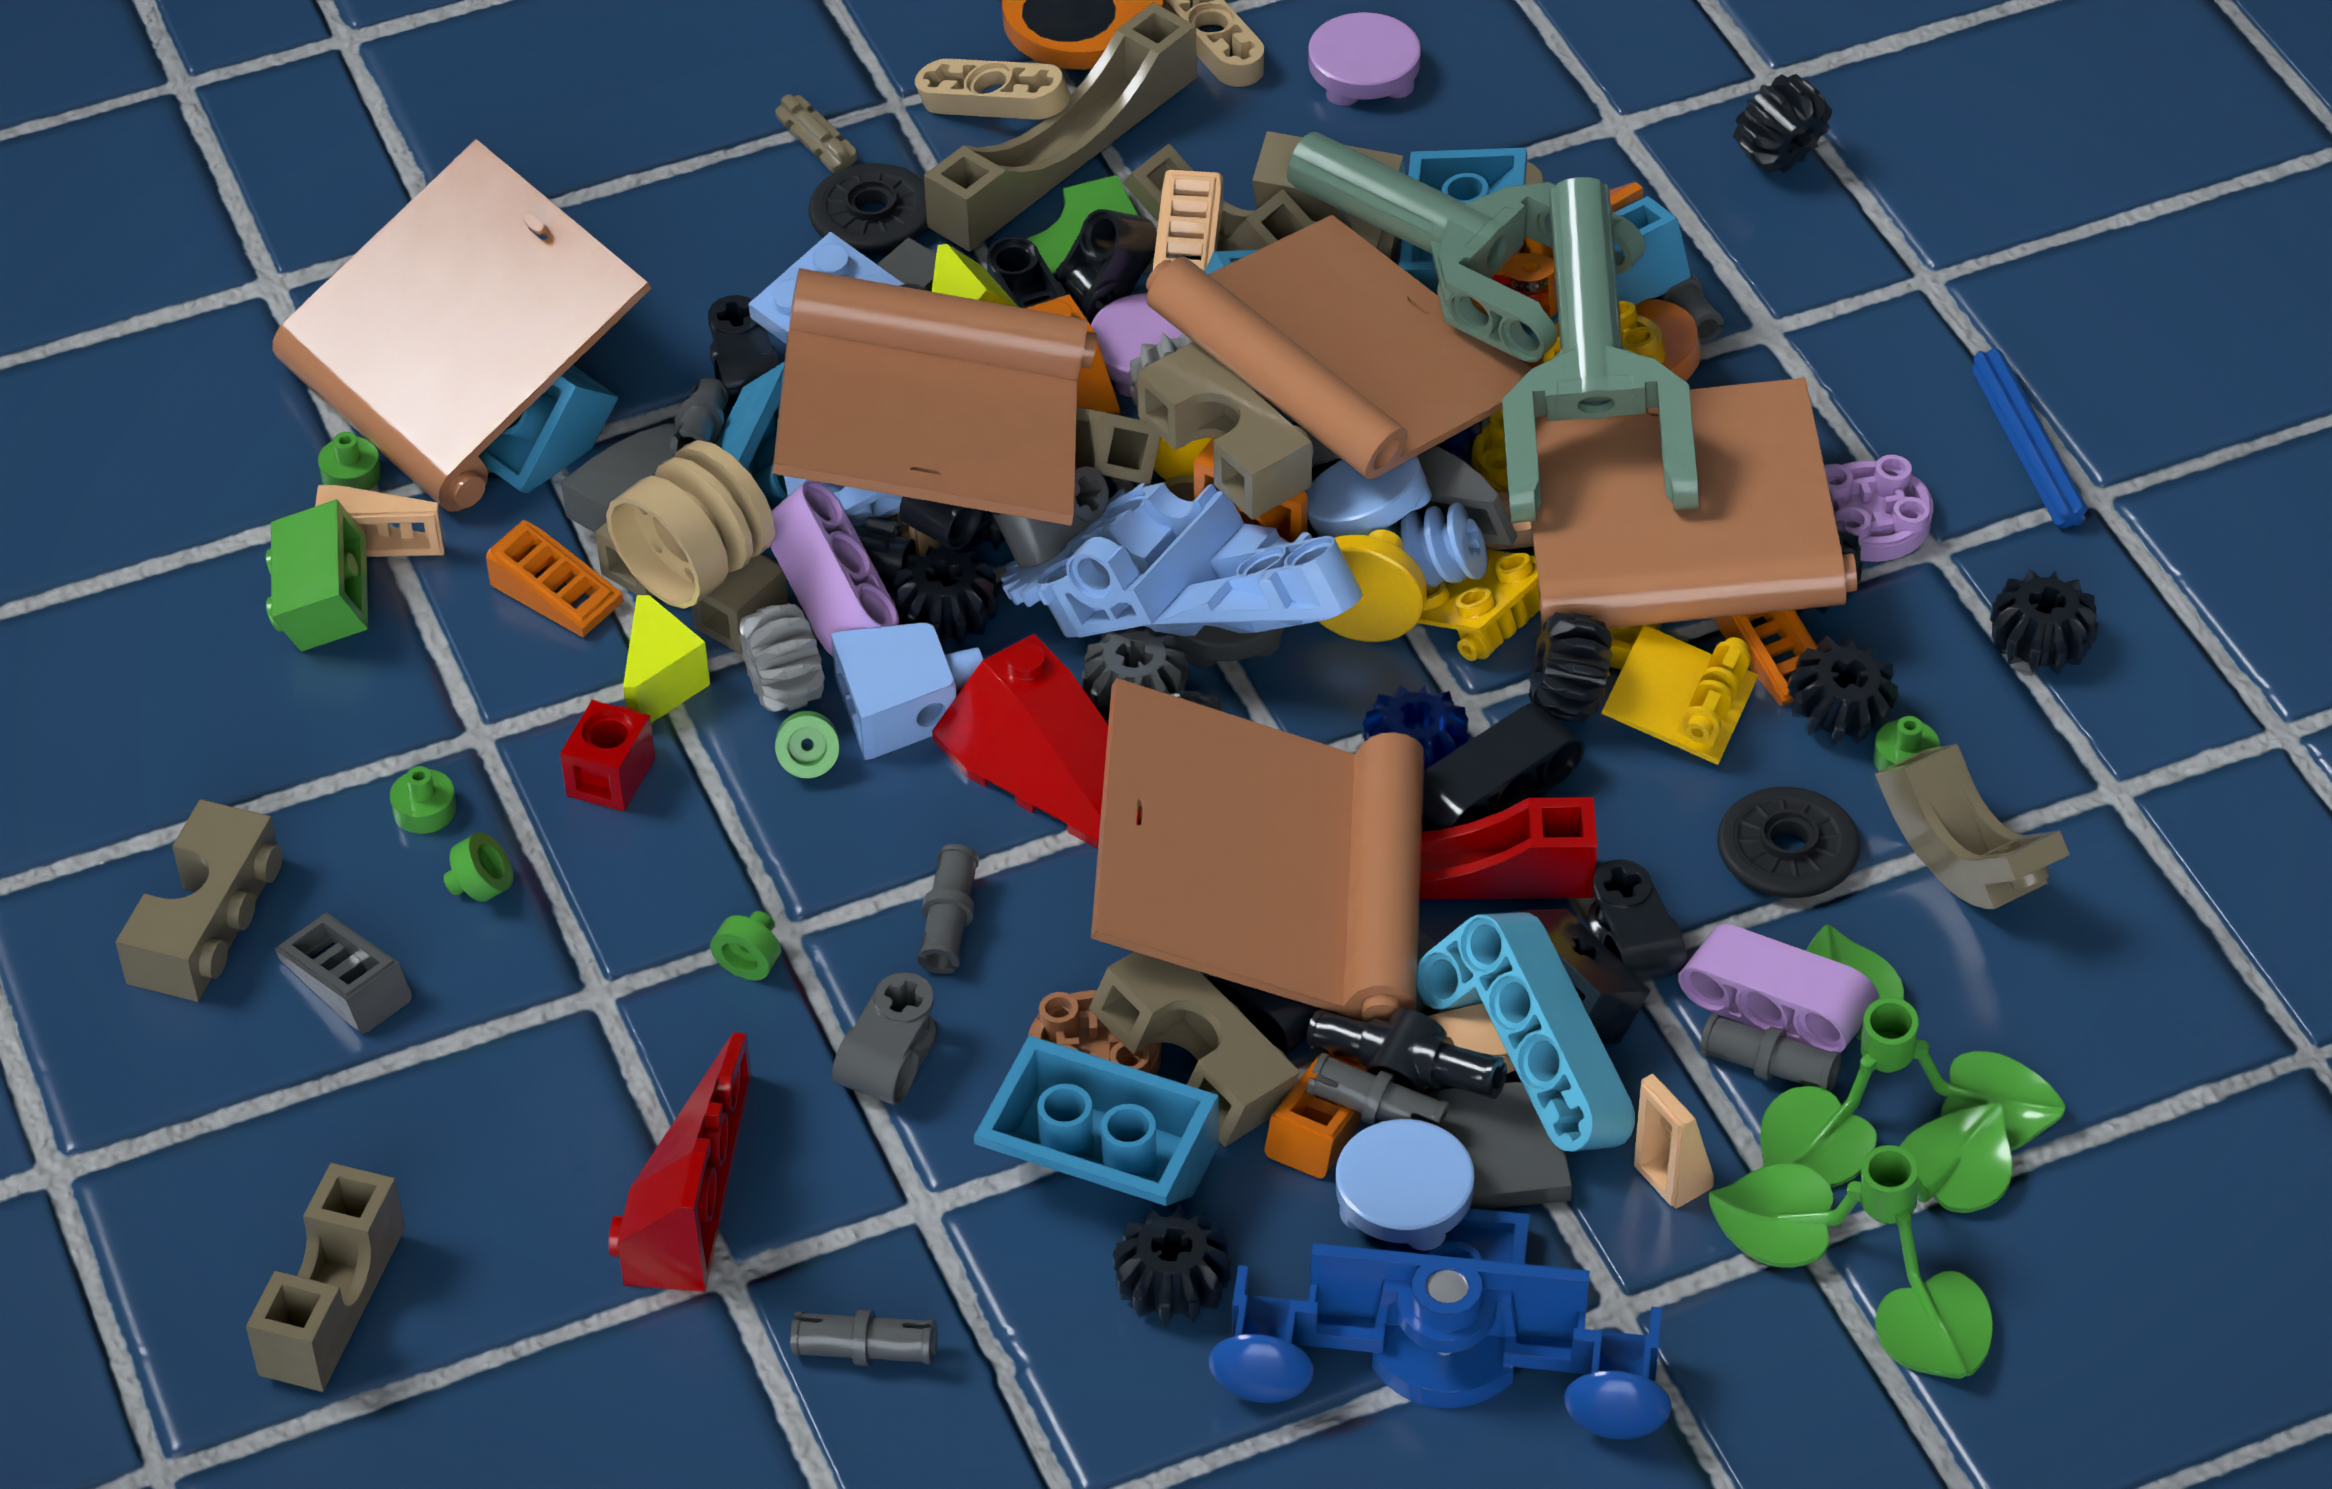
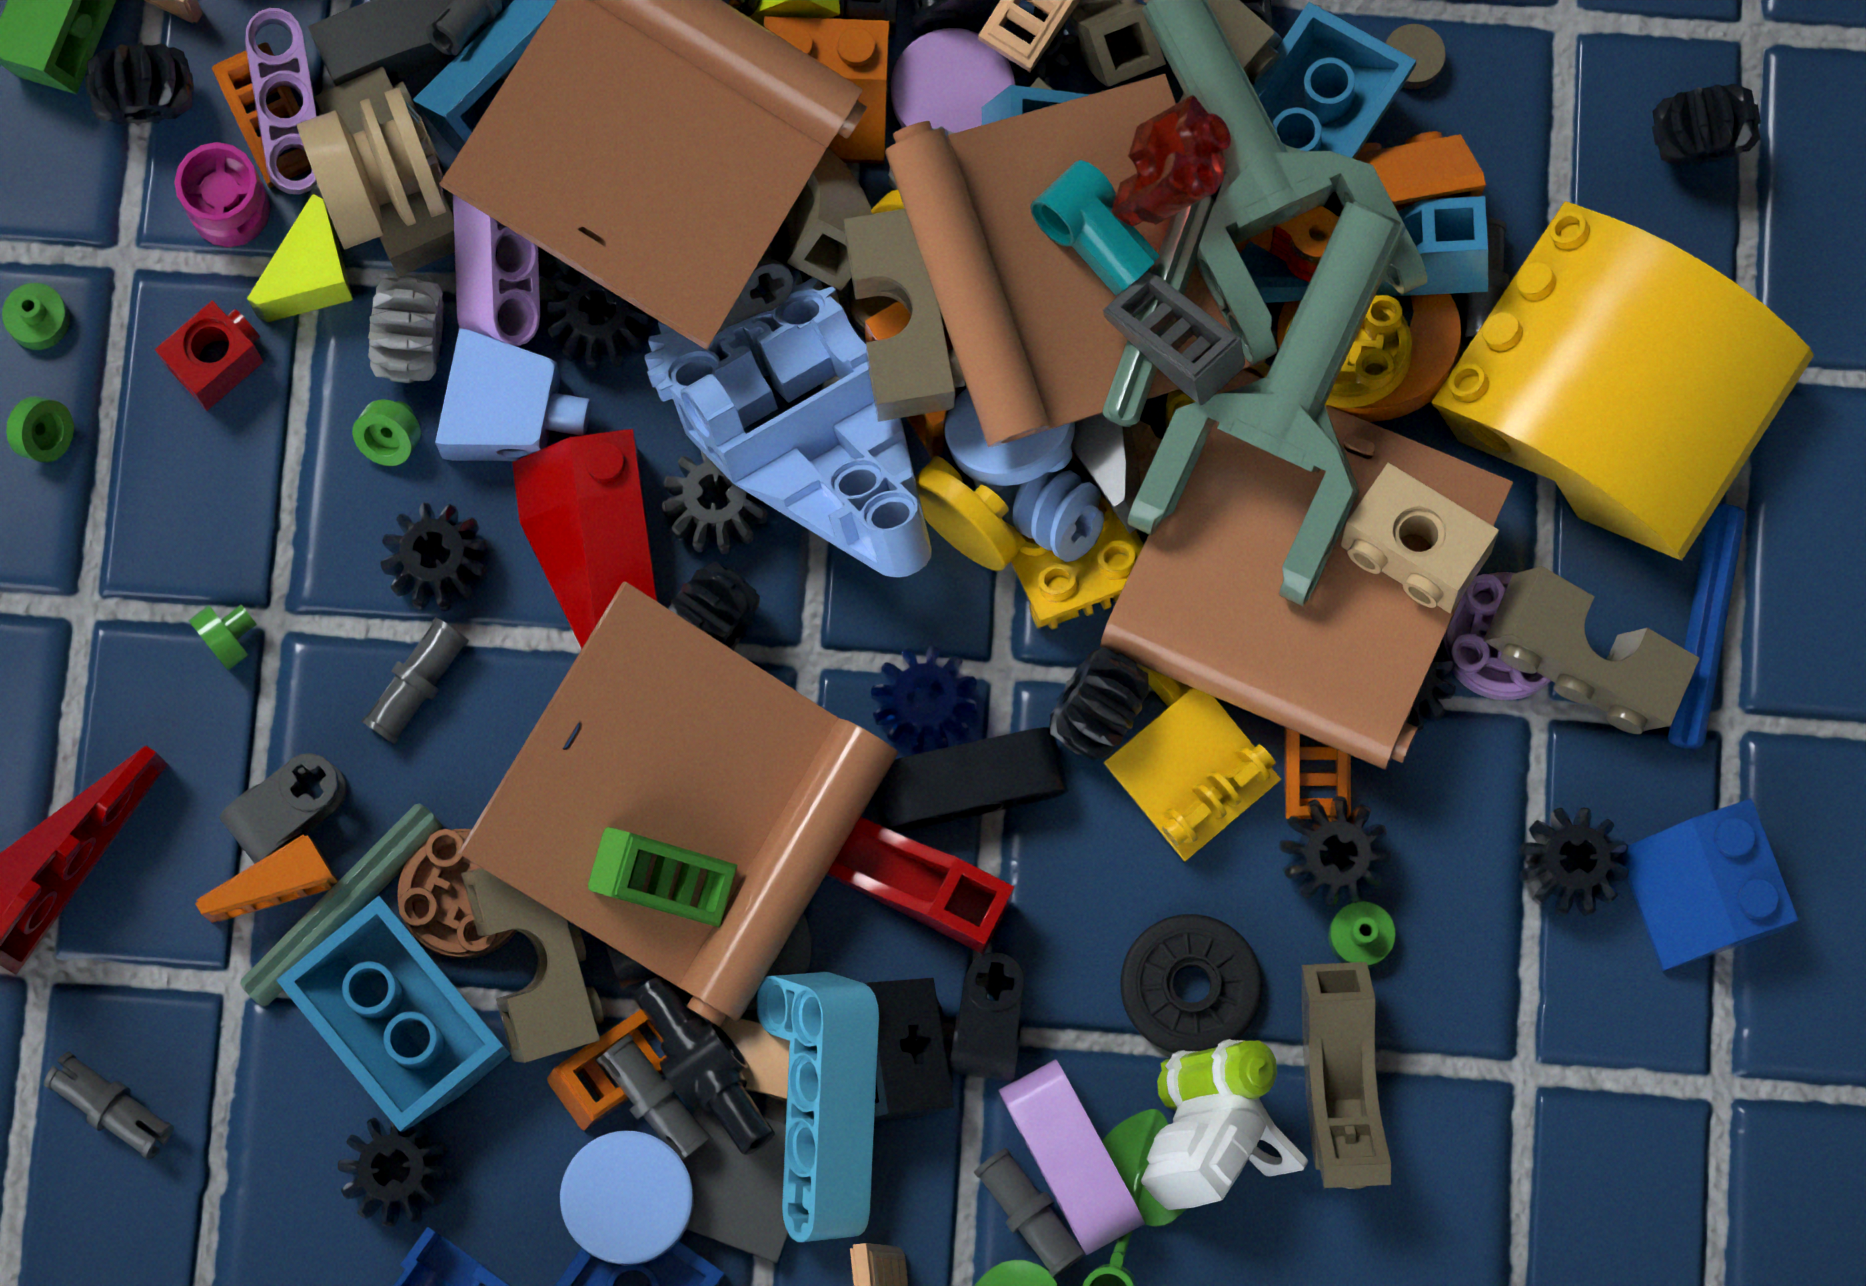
camera: 25 degrees right, 30 degrees up
(427, 588) = (139, 84): none -> black gear
(551, 636) = (214, 182): none -> dark pink wheel
(562, 518) = (276, 71): none -> lavender beam
(909, 812) = (425, 535): none -> black gear
(916, 1099) = (279, 878): none -> orange slope
(962, 1157) = (342, 901): none -> sand green axle
(1275, 904) = (624, 863): none -> bright green slope
(1349, 304) = (1079, 215): none -> teal piece
(1387, 238) = (1176, 163): none -> clear red cylinder
(1437, 353) = (1175, 267): none -> sand green axle
(1472, 343) = (1200, 368): none -> dark grey slope
(1760, 421) = (1402, 507): none -> tan brick
(1845, 281) = (1624, 378): none -> yellow slope
(1887, 893) = (1215, 1124): none -> white piece
(1909, 465) = (1544, 632): none -> dark tan arch
(2170, 589) = (1708, 885): none -> blue slope

